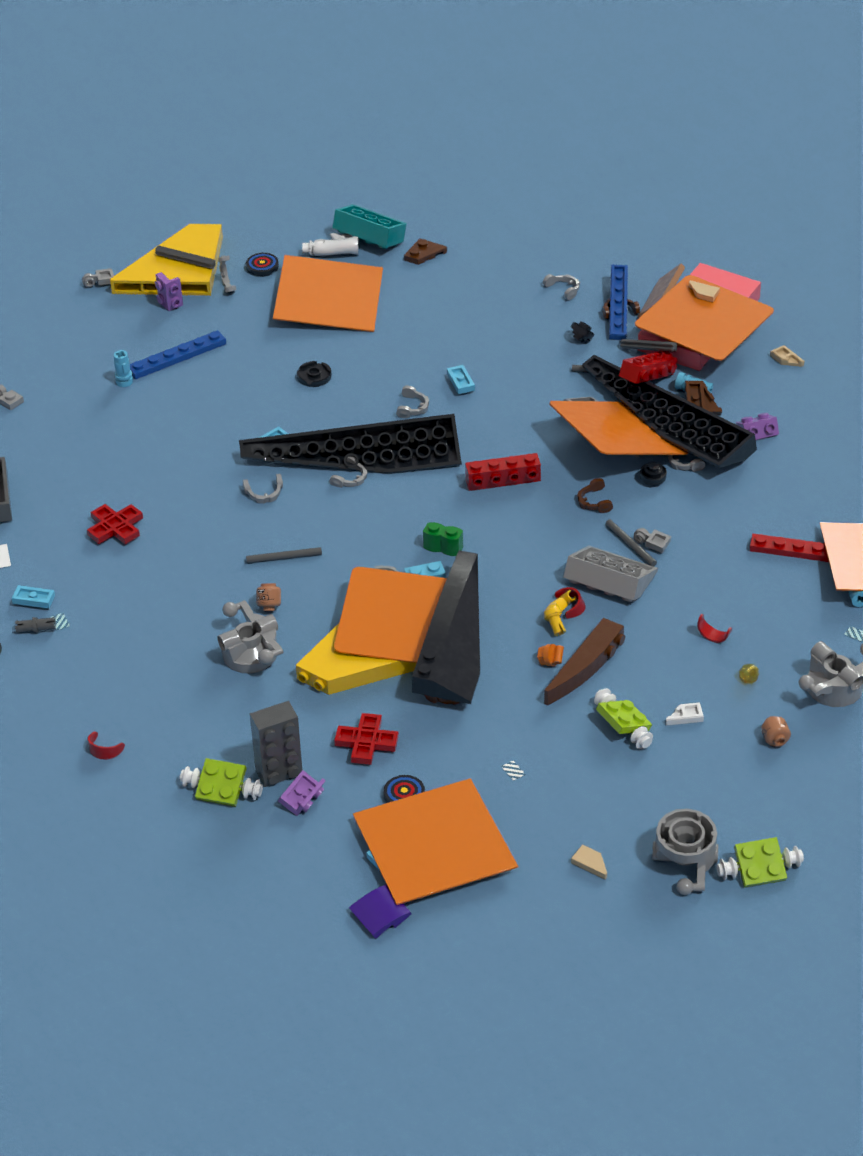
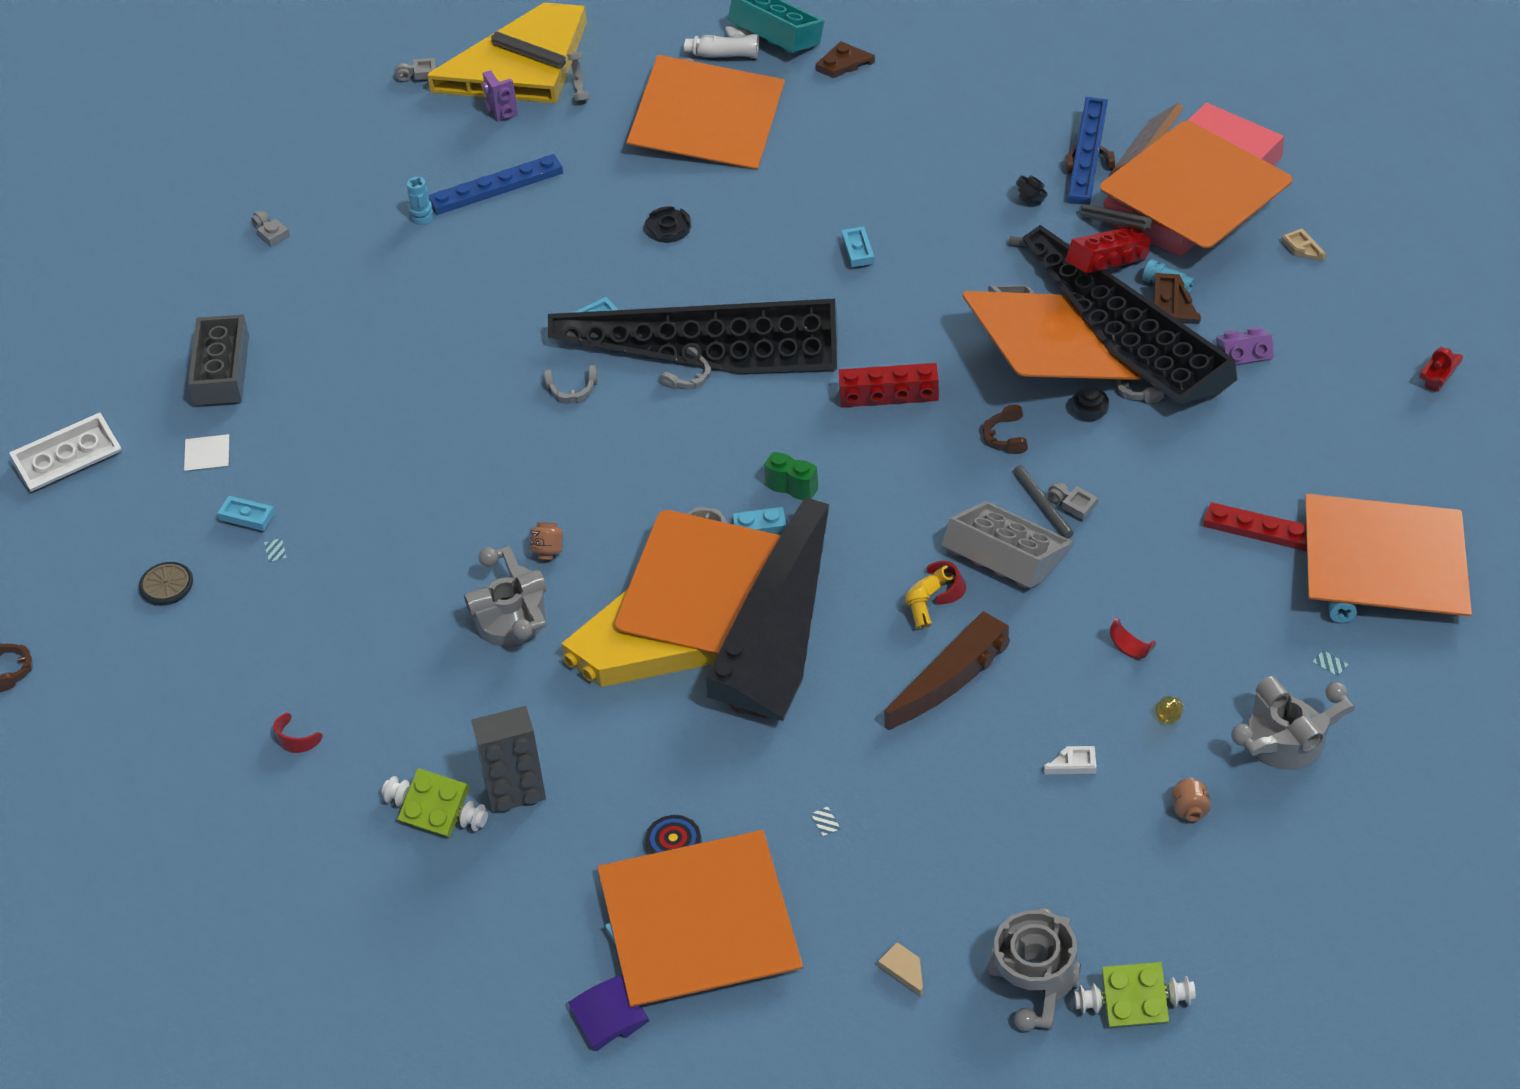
camera: 10 degrees right, 5 degrees up
(35, 624) = (241, 553): dark grey pin -> none
(115, 524) = (370, 418): red plate -> none
(262, 264) = (629, 64): black tile -> none
(284, 555) = (580, 480): dark grey bar -> none
(300, 792) = (535, 827): medium lavender bracket -> none
(366, 738) = (637, 757): red plate -> none
(410, 392) = (788, 260): light grey piece -> none
(550, 654) = (903, 657): orange piece -> none
(571, 292) = (1027, 132): light grey piece -> none
(624, 718) = (986, 760): lime plate -> none
(704, 291) = (1201, 146): tan tile -> none

